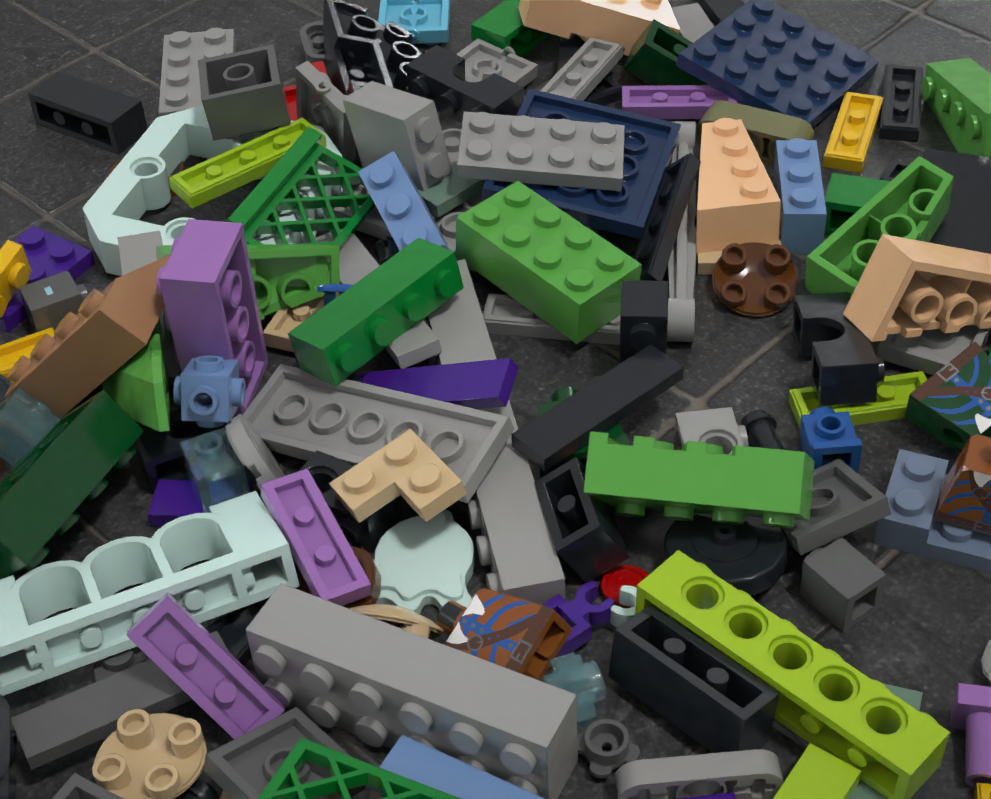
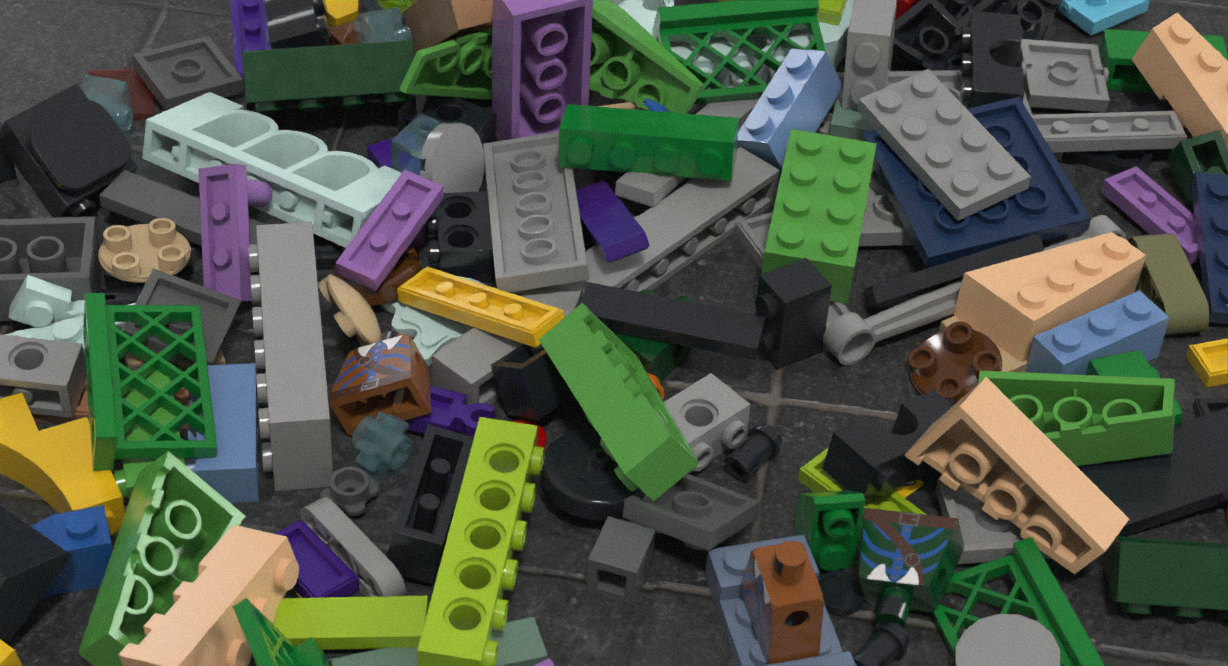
camera: 50 degrees right, 0 degrees up
(223, 387) = (476, 97): medium blue brick -> none
(397, 469) = (482, 241): tan plate -> none
(470, 524) = (479, 306): none -> yellow tile
(829, 433) = (780, 488): blue brick -> none
(898, 422) = (830, 526): none -> green slope

